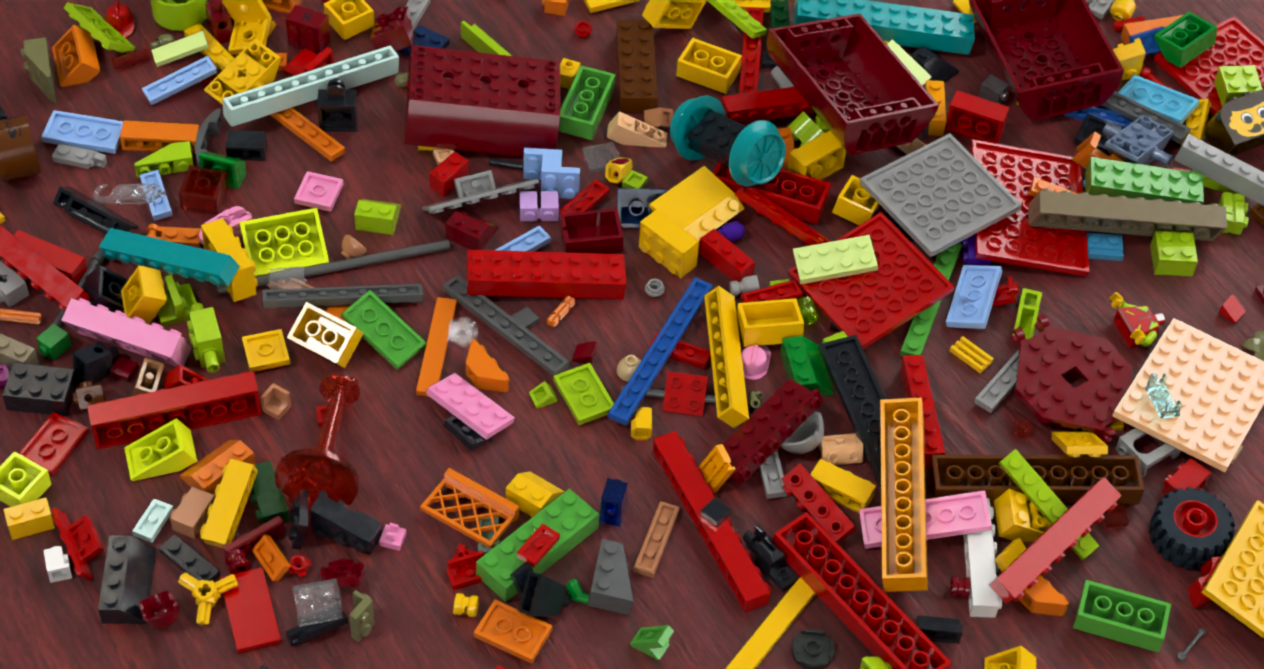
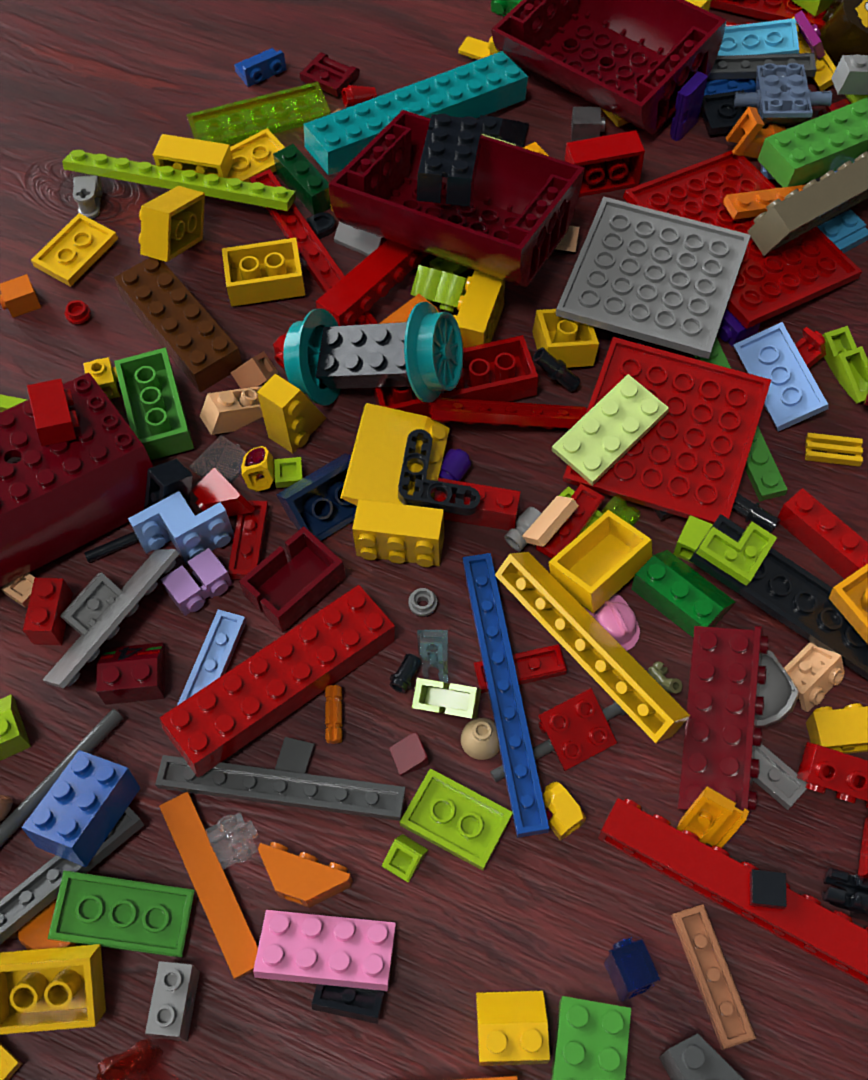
camera: 30 degrees left, 10 degrees up
(380, 380) = (172, 1001): none -> light grey brick
(398, 270) = (81, 808): none -> blue brick
(522, 68) = (51, 412): none -> red brick
(562, 141) = (166, 480): none -> black brick
(588, 169) = (216, 489): none -> red slope
(610, 317) = (402, 678): none -> black pin
(626, 335) = (436, 696): none -> piece
(639, 310) = (434, 652): none -> clear light blue hinge
(656, 148) = (288, 413): none -> yellow wedge
(699, 223) = (424, 487): none -> black beam
(758, 285) = (550, 521): none -> light nougat tile
(837, 215) = (556, 369): none -> black pin
(846, 360) = (737, 558): none -> lime plate
(852, 53) = (449, 152): none -> black piece
(887, 356) = (755, 513): none -> black axle
(1066, 114) = (688, 106): none -> dark purple piece
(1197, 115) = (810, 34): none -> magenta plate

